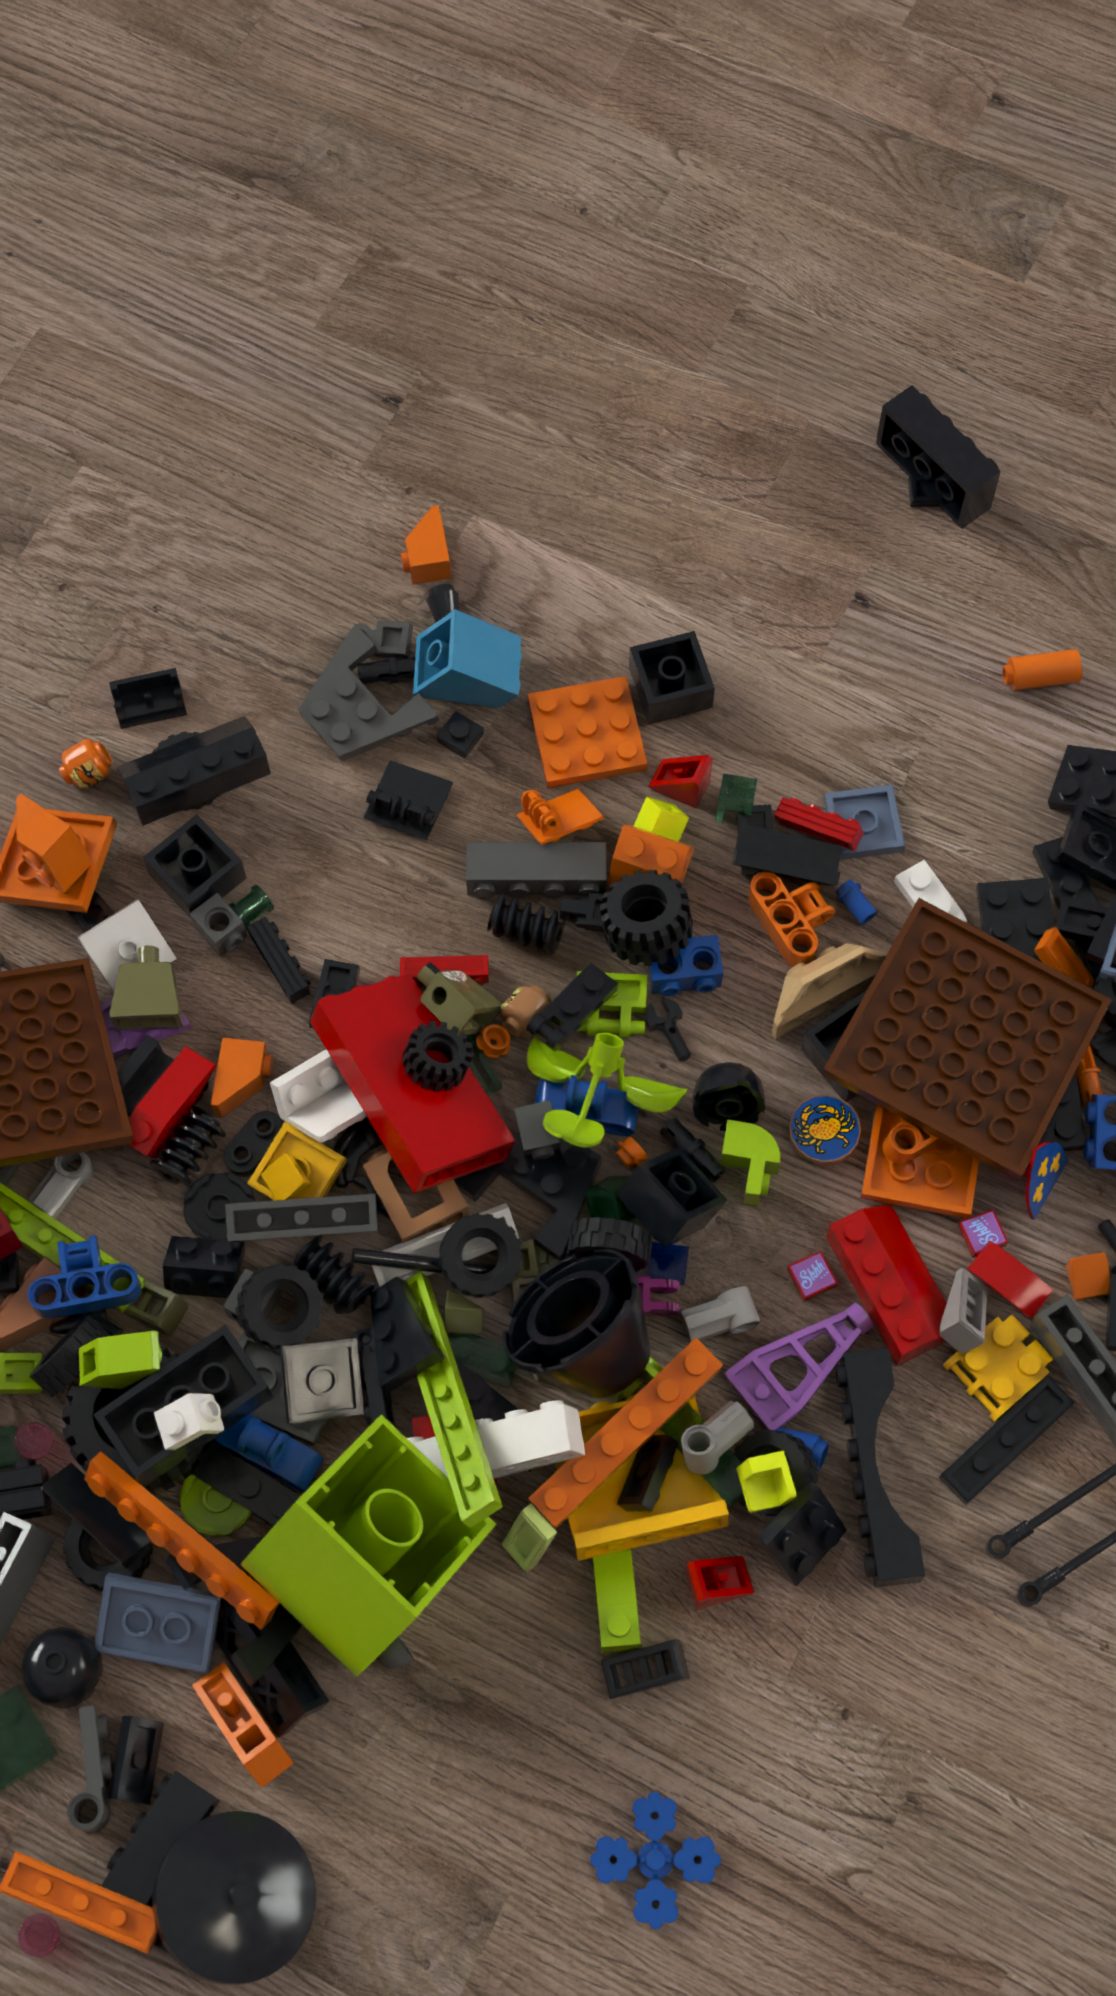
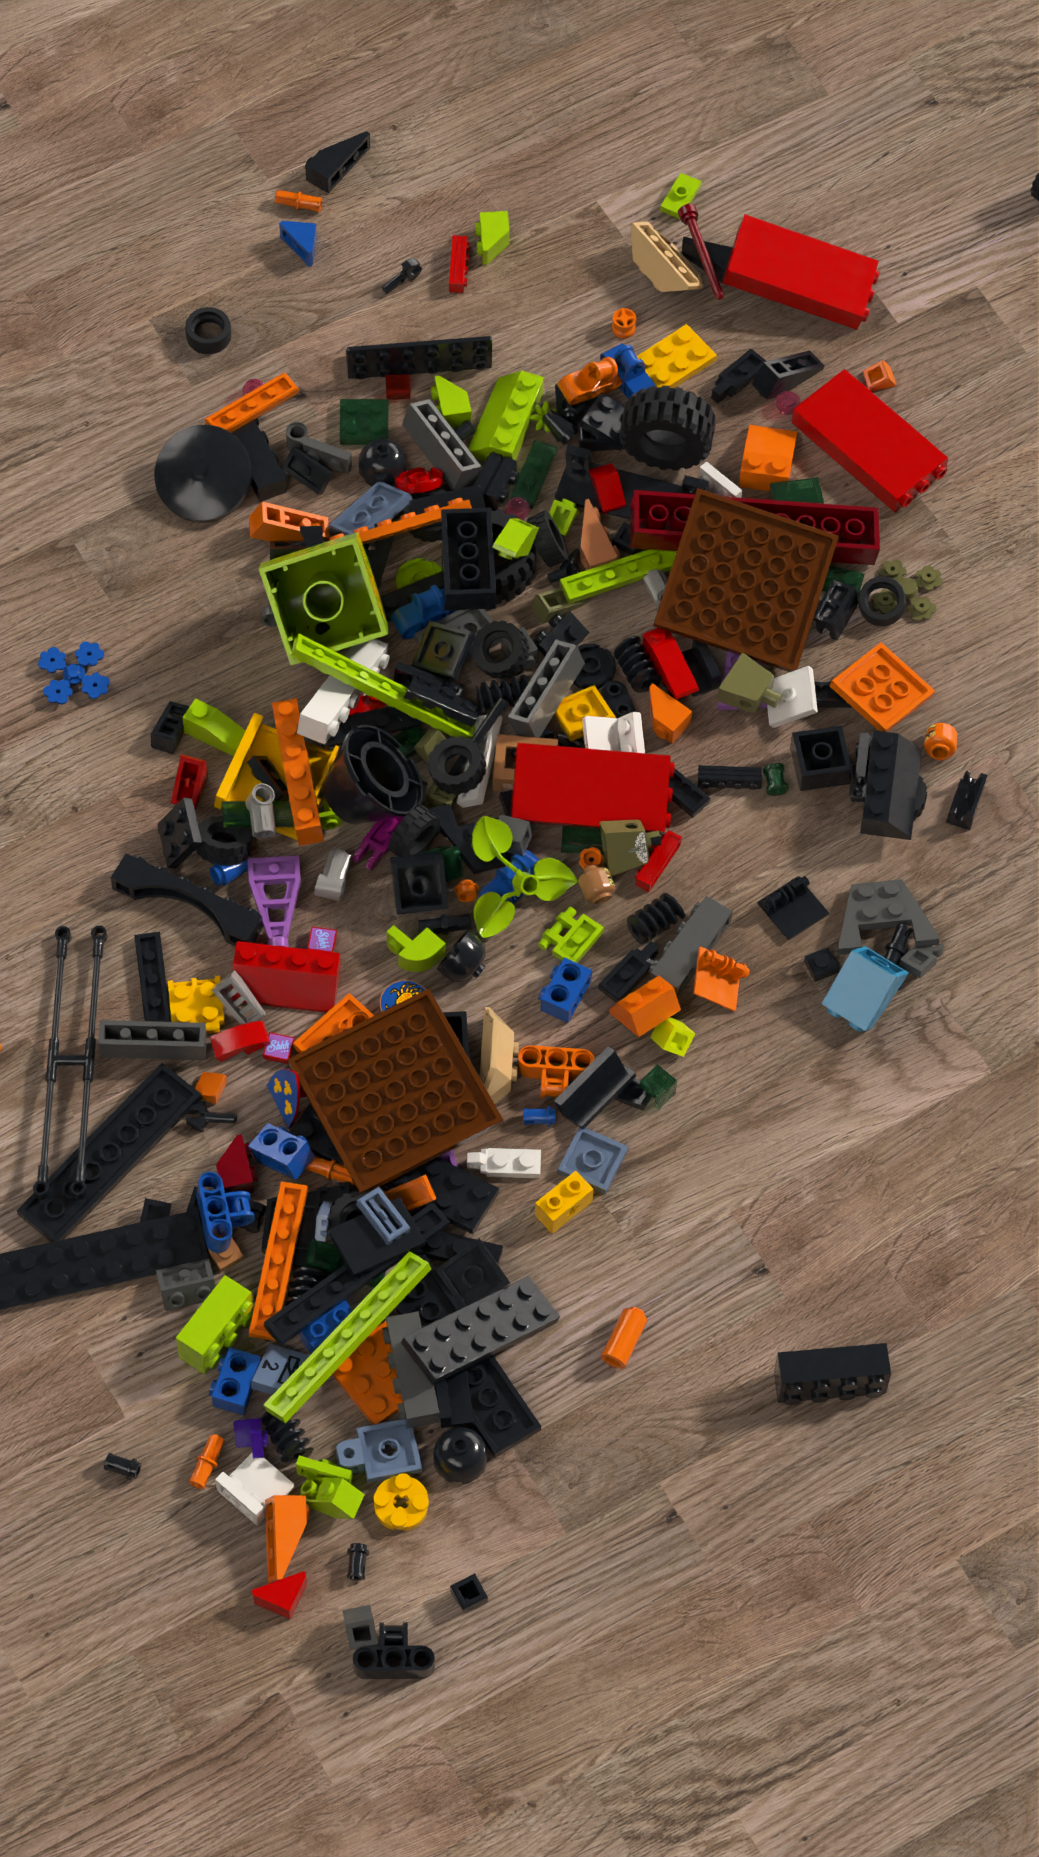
camera: 120 degrees right, 5 degrees down
(49, 845) = (881, 672): orange slope -> none
(67, 1589) = (419, 480): none -> red tile
(79, 1266) = (594, 561): blue piece -> none
(151, 833) = (859, 771): none -> black hinge
(188, 1419) = (450, 544): white bracket -> none
(216, 912) = (776, 746): dark grey brick -> none
(285, 1177) = (579, 701): yellow slope -> none
(427, 550) = (976, 1021): orange slope -> none
(442, 600) = (922, 1005): black cone -> none
(444, 1041) = (598, 786): black tyre -> none
(529, 1538) = (278, 696): yellowish green tile -> none
(573, 1007) = (577, 903): black plate -> none
(587, 732) = (772, 1038): orange plate -> none
(651, 939) = (614, 955): black tyre -> none
(669, 1027) = (534, 962): black bar -> none
(669, 1262) = (382, 873): clear blue tile -> none
(671, 677) = (772, 1100): black brick -> none
(683, 778) = (695, 1069): red slope -> none
(766, 1481) = (218, 819): neon yellow panel -> none
(819, 824) = (606, 1124): red piece -> none
(941, 812) = (564, 1202): none -> yellow brick

